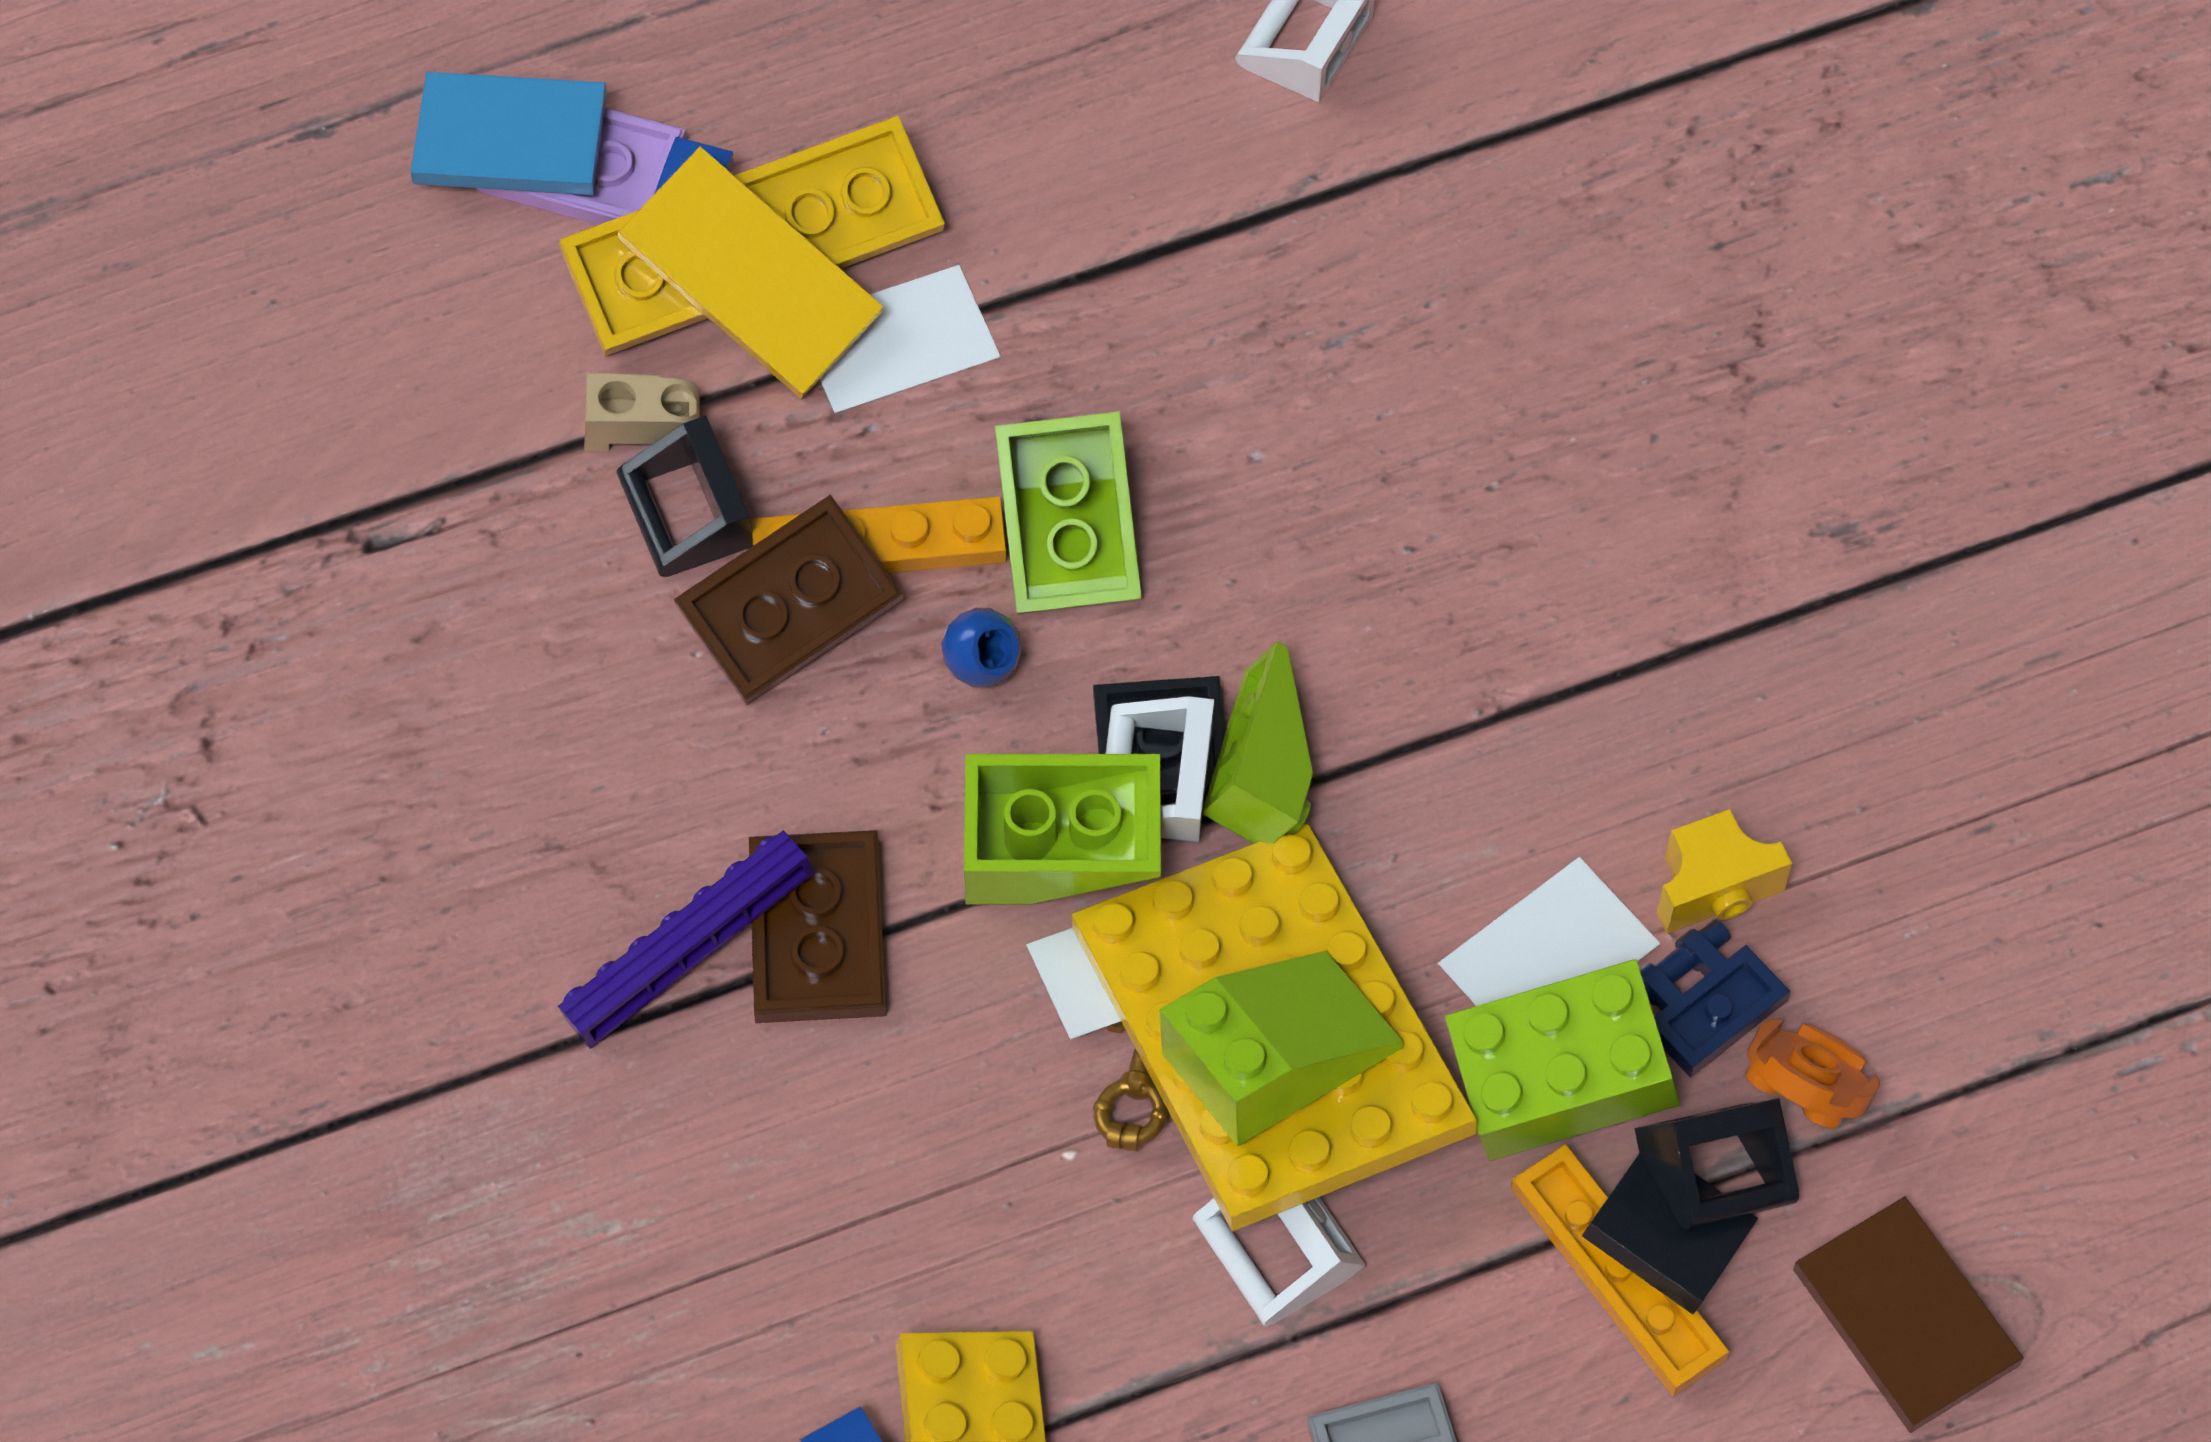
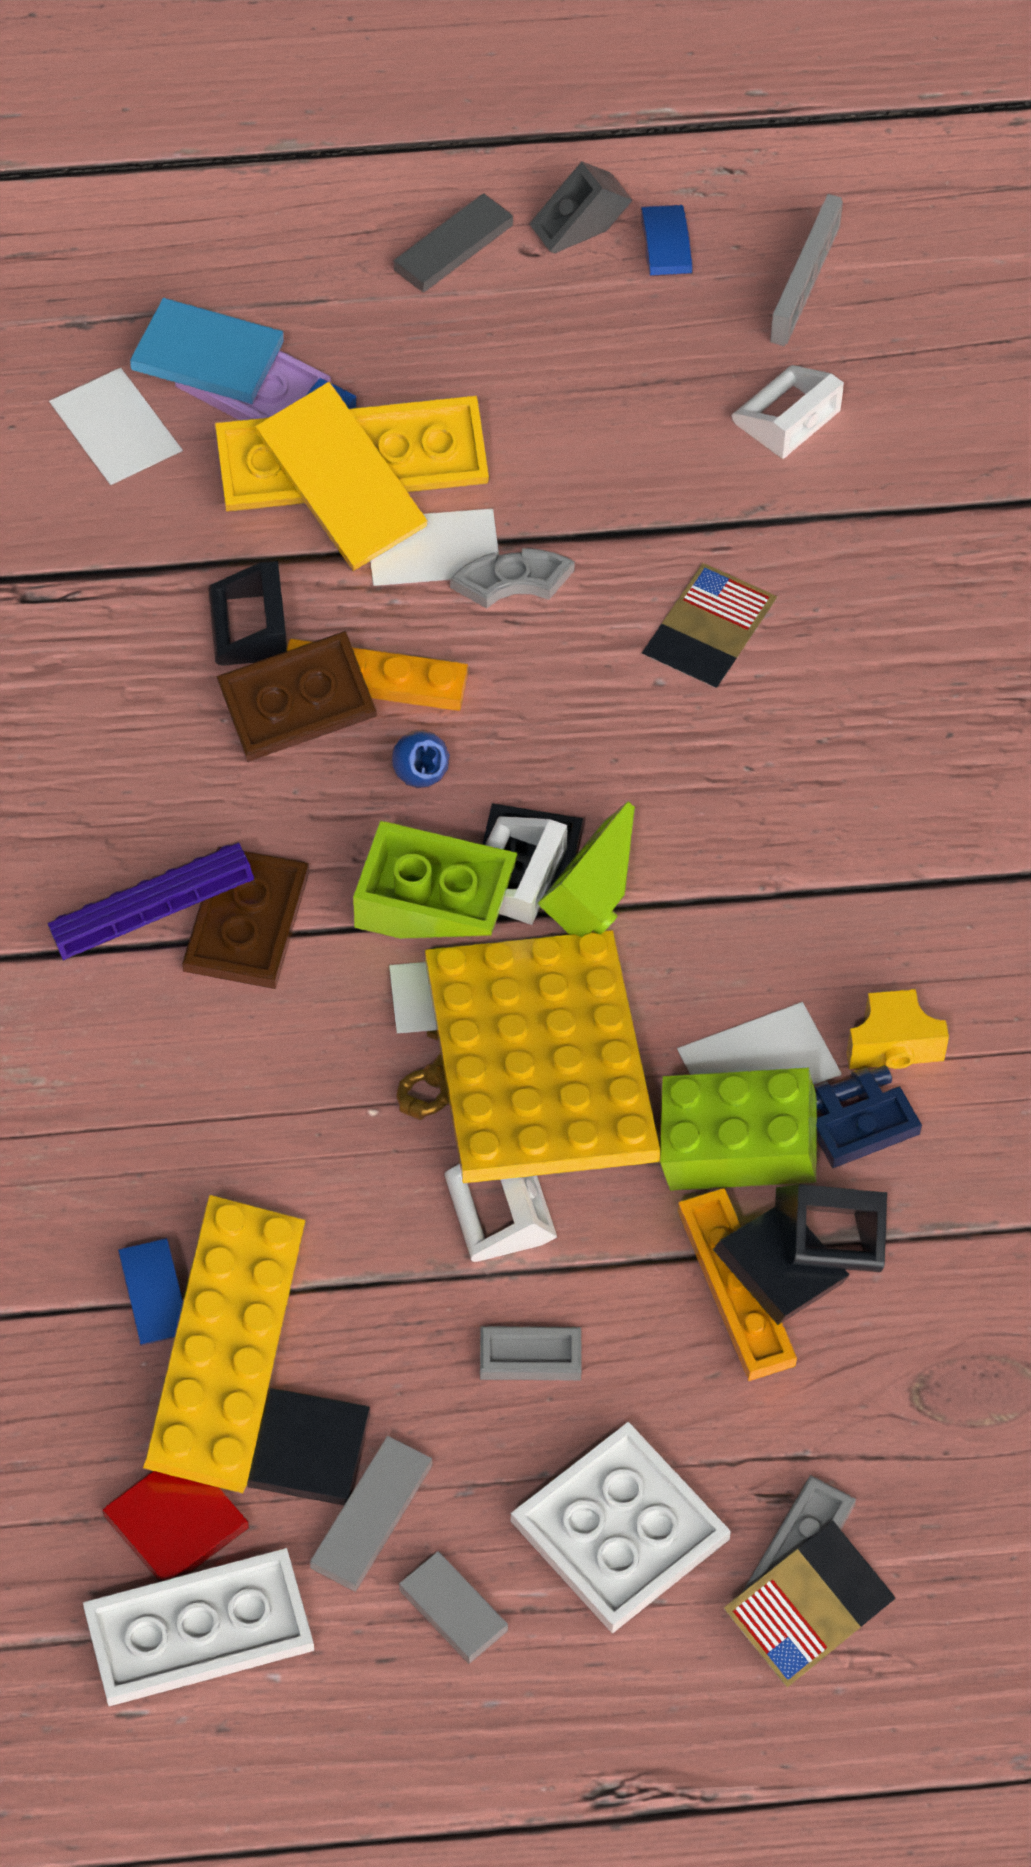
camera: 15 degrees right, 5 degrees down
(413, 268) = (115, 426): none -> white sticker
(635, 408) = (231, 547): tan leg -> none
(1016, 351) = (508, 574): none -> light grey tile
(1068, 512) = (511, 682): lime slope -> none
(1272, 1040) = (531, 1058): lime slope -> none
(1296, 361) = (709, 625): none -> sticker
(1811, 1071) = (919, 1182): orange plate -> none
(1908, 1314) = (938, 1368): reddish brown tile -> none

